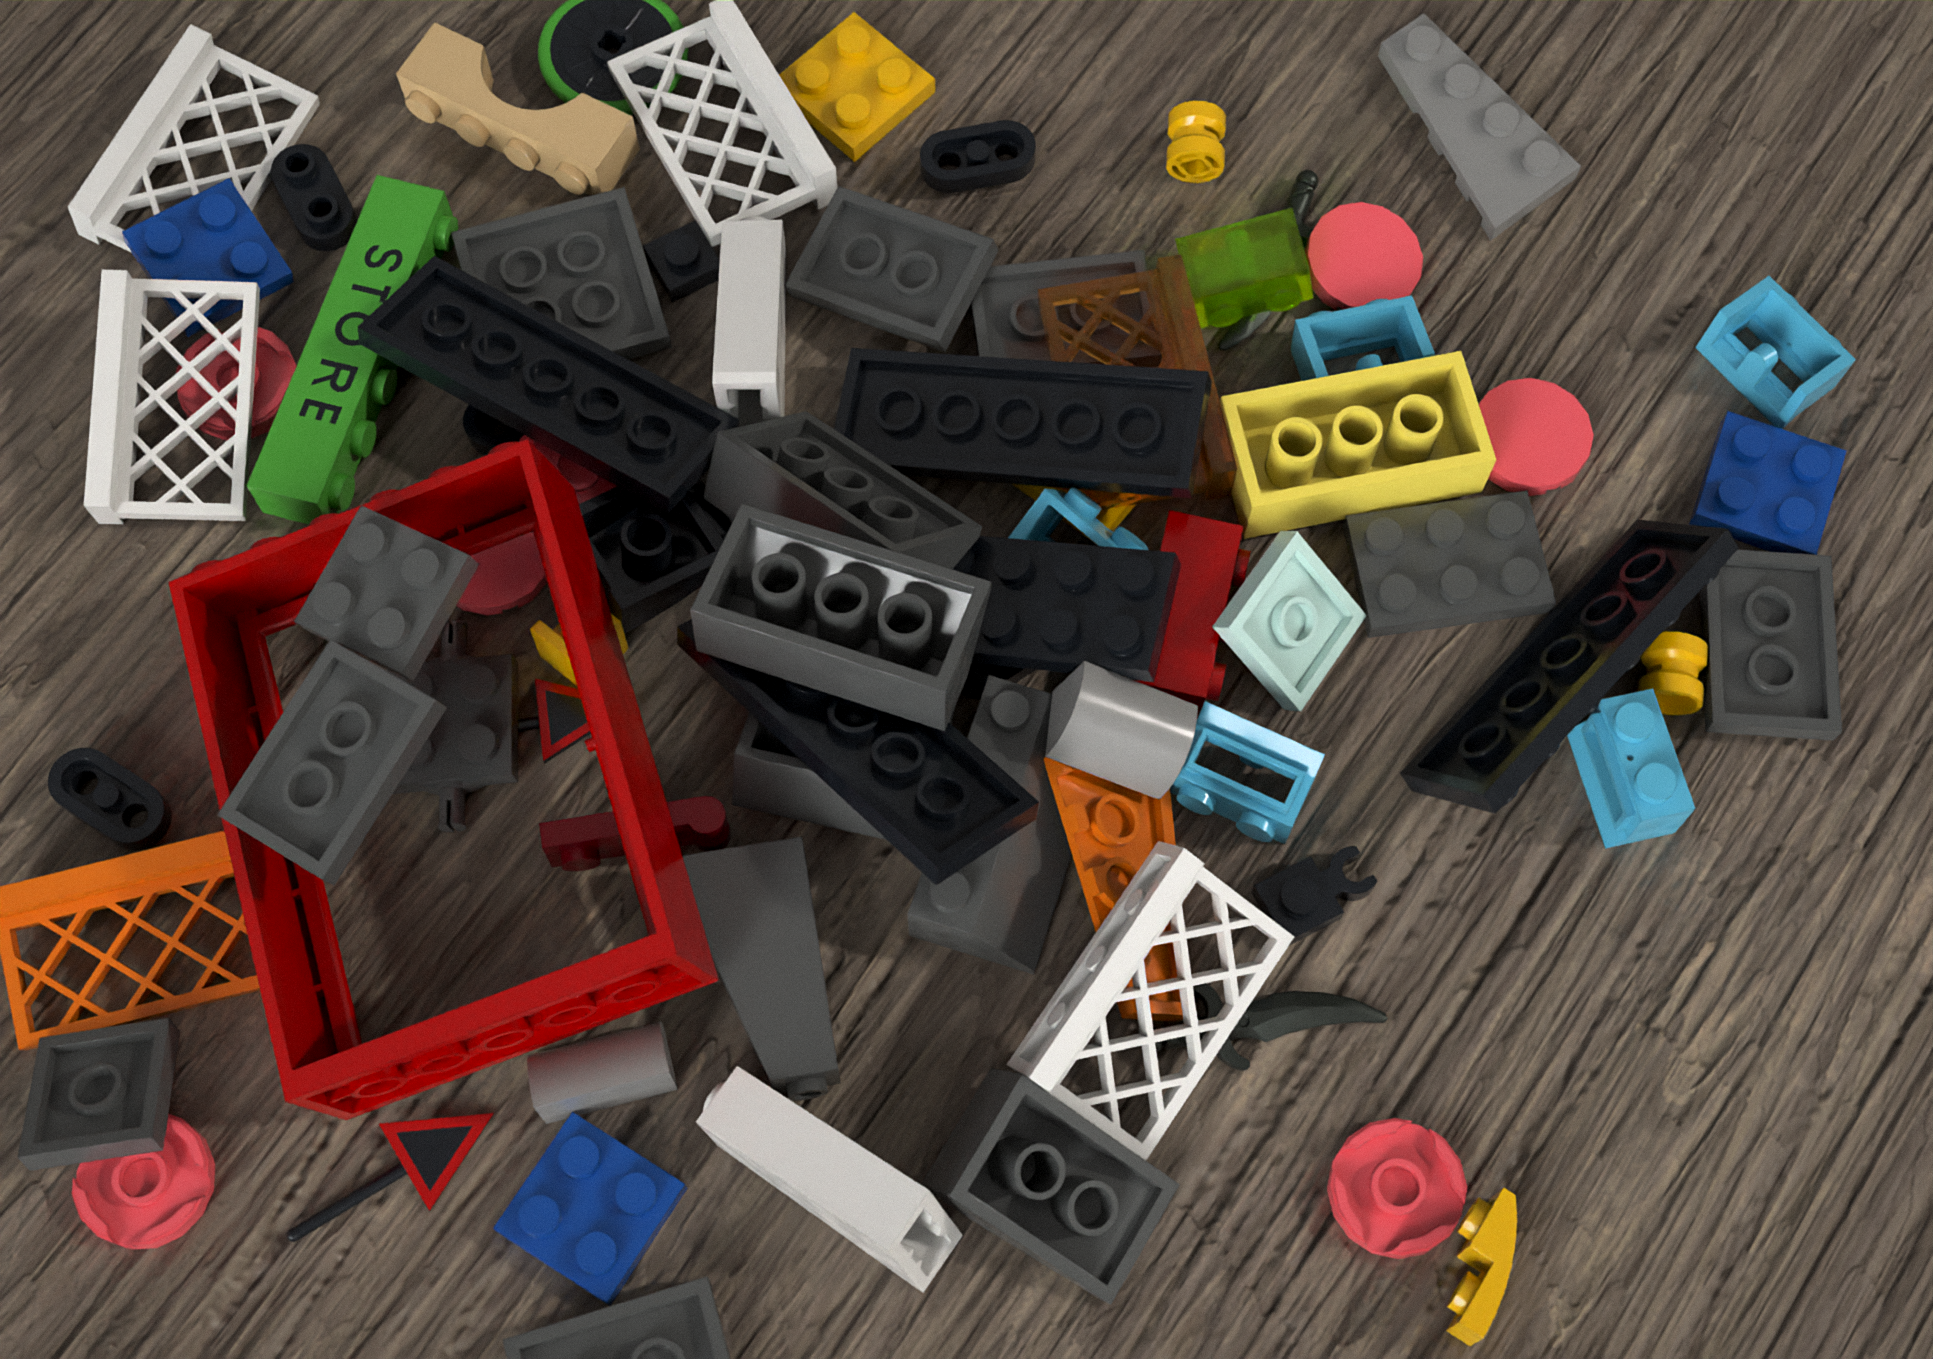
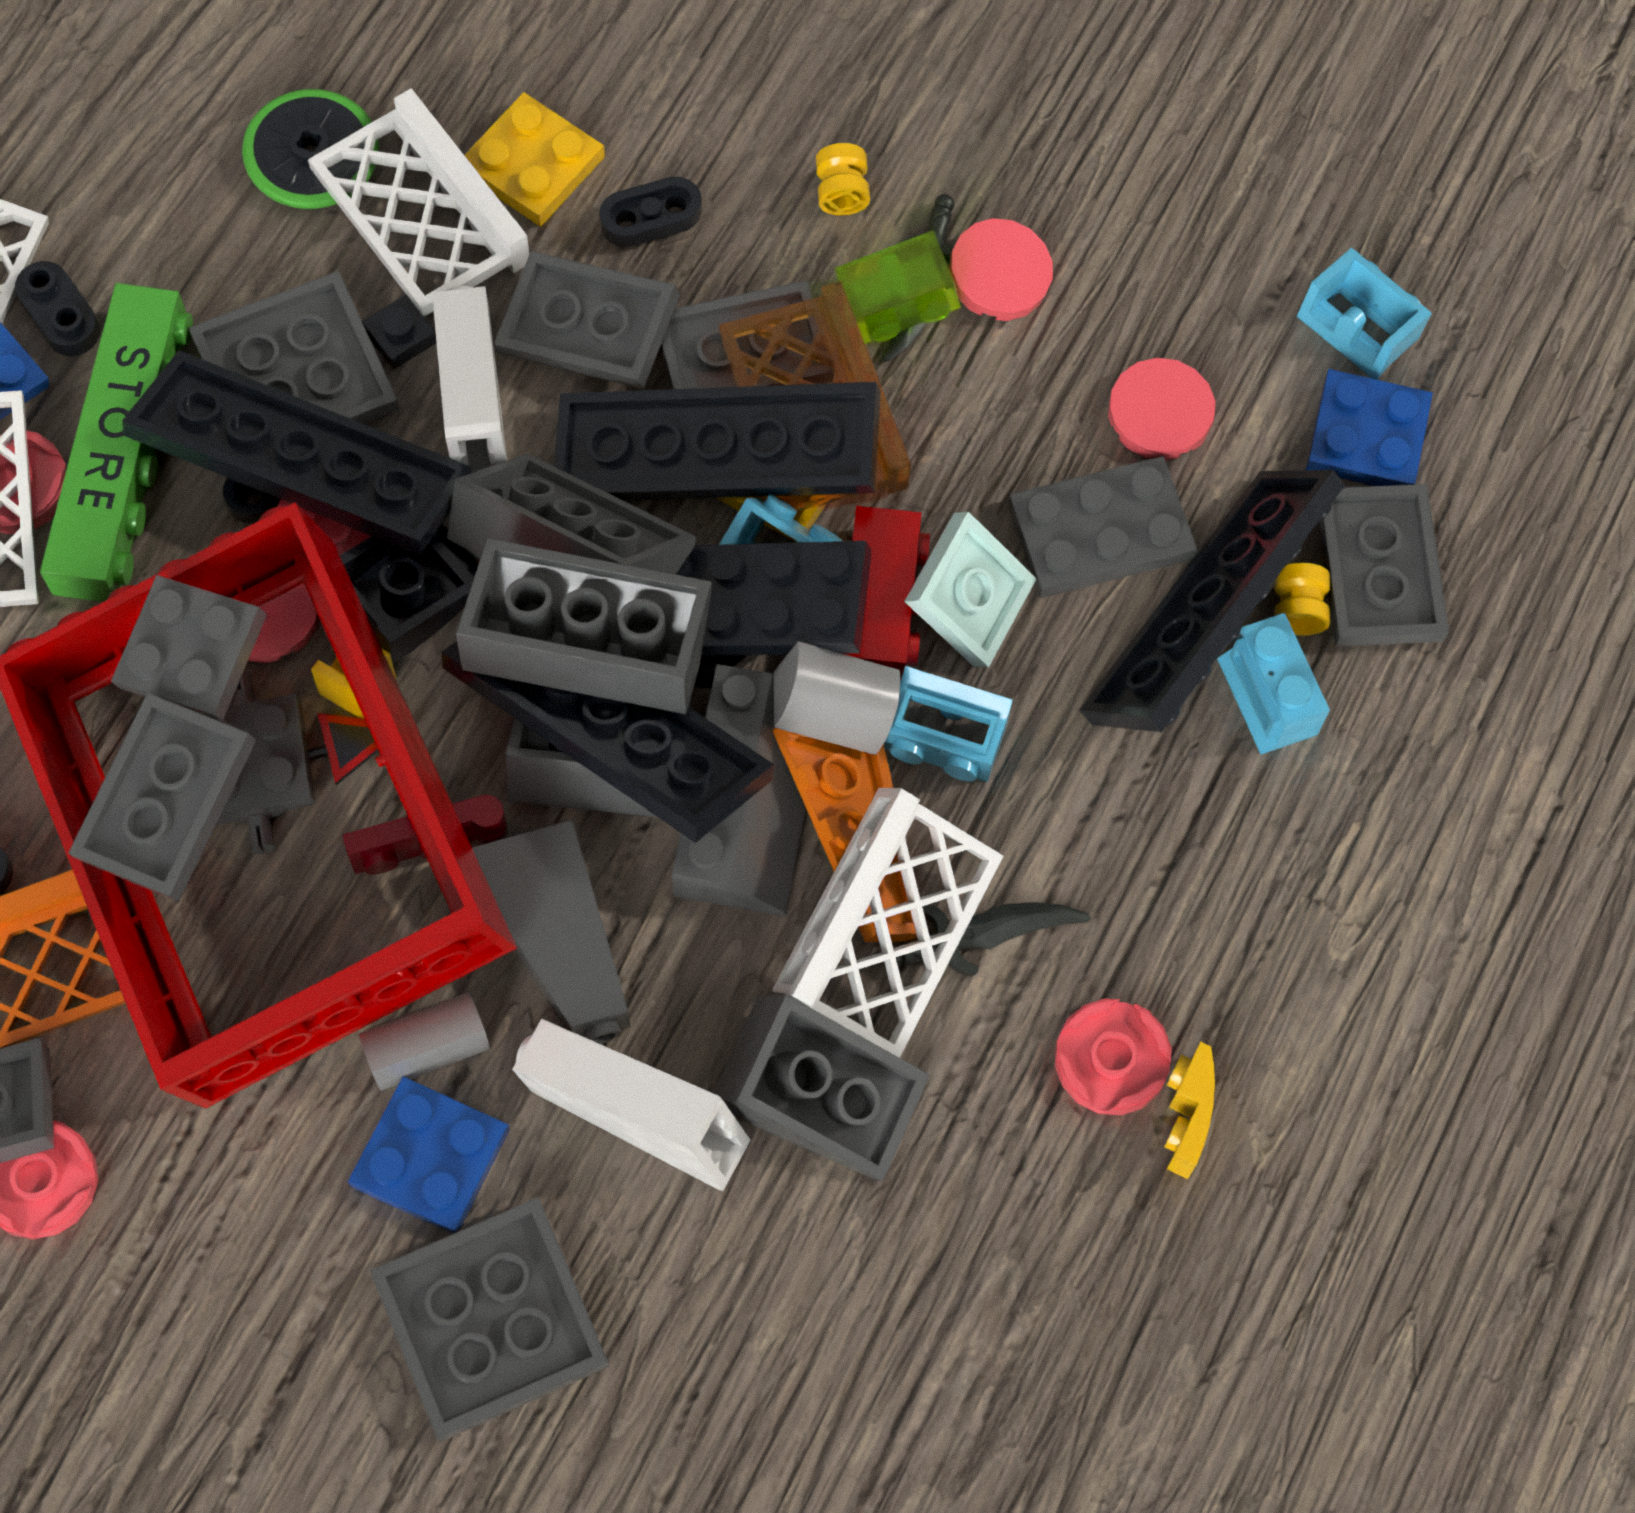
camera: 10 degrees left, 0 degrees up
(427, 1152) = (281, 1126): piece -> none
(576, 143) = (291, 235): tan arch -> none
(1306, 899) = (1012, 824): black plate -> none
(1356, 331) = (1001, 332): medium azure window -> none
(1356, 444) = (1011, 431): light yellow brick -> none
(1489, 140) = (1098, 150): light grey wing -> none

